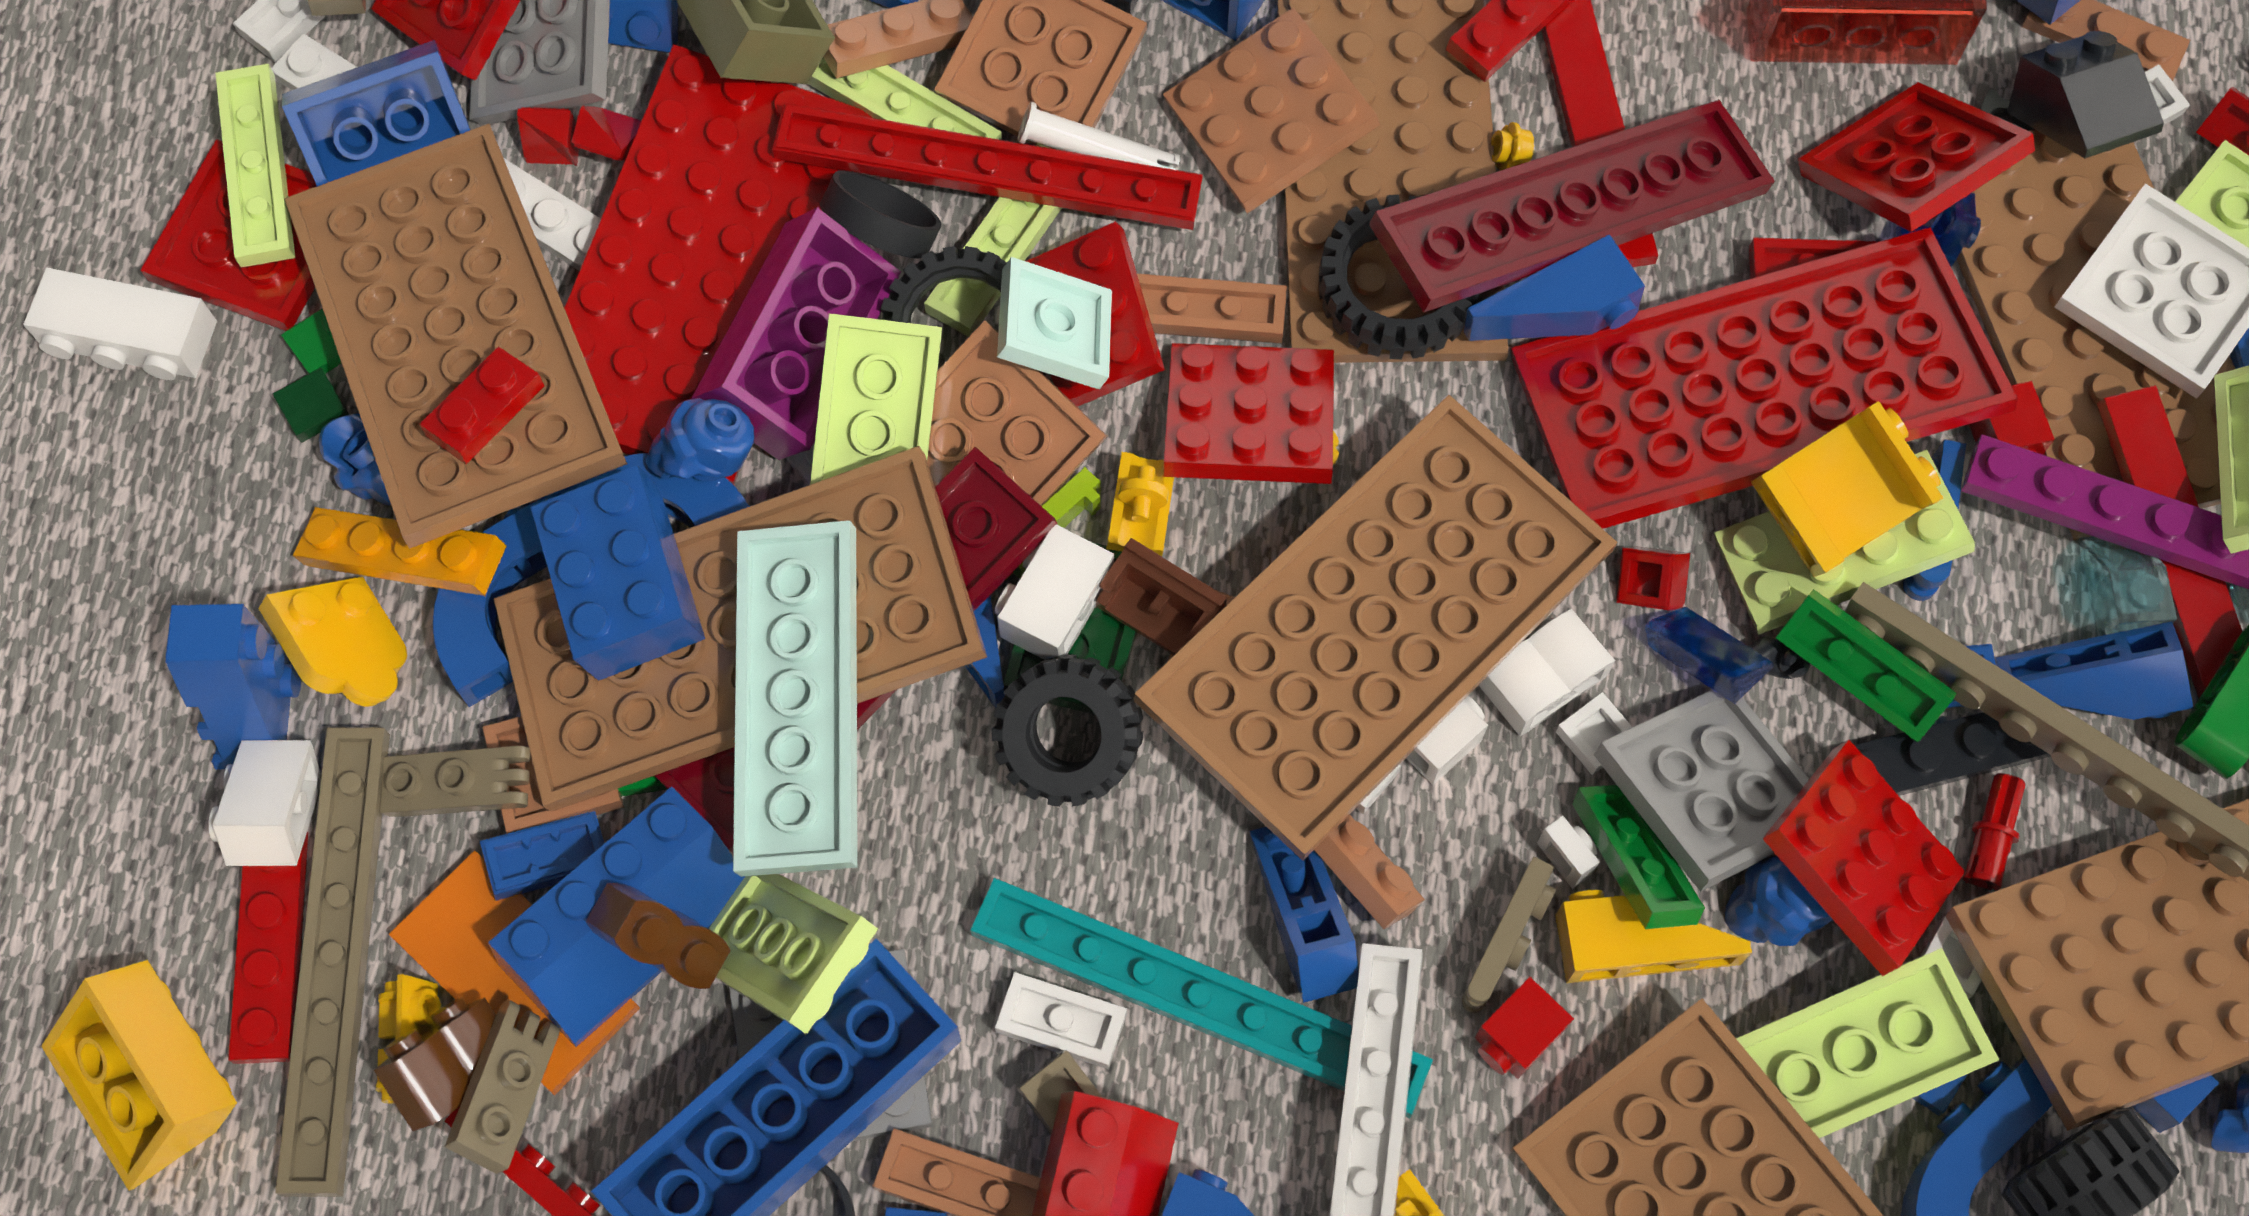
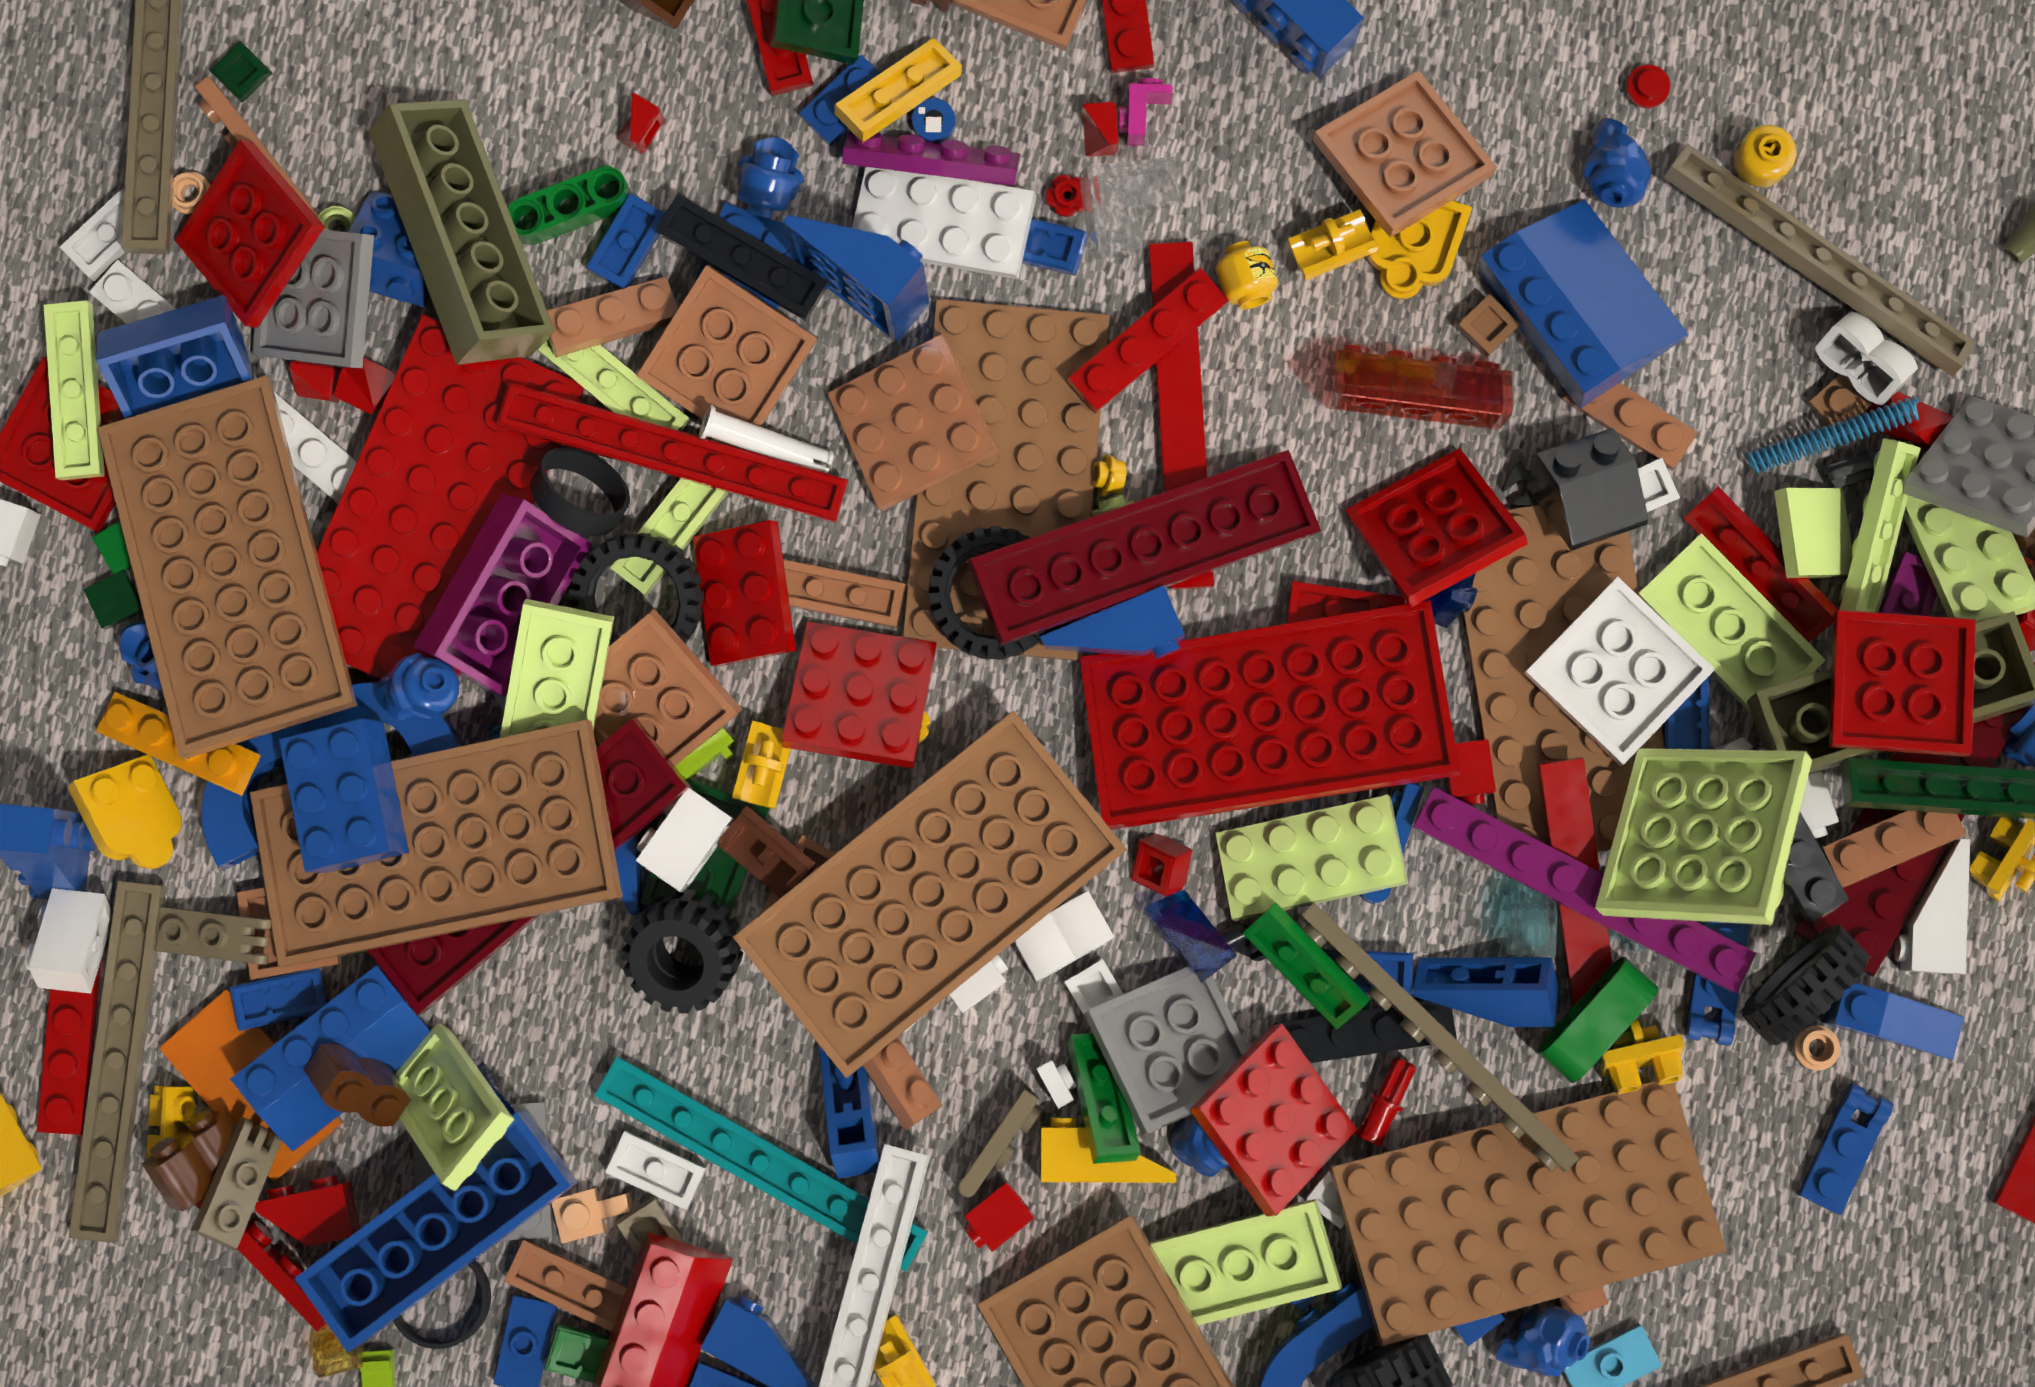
camera: 10 degrees right, 15 degrees up
(482, 405) = (245, 648): red plate -> none
(603, 1122) = (313, 1215): none -> red slope
(796, 700) = (472, 917): light aqua plate -> none
(970, 1091) = (585, 1214): none -> light nougat plate
(1054, 323) = (705, 619): light aqua plate -> none
(1848, 488) = (1309, 830): yellow panel -> none

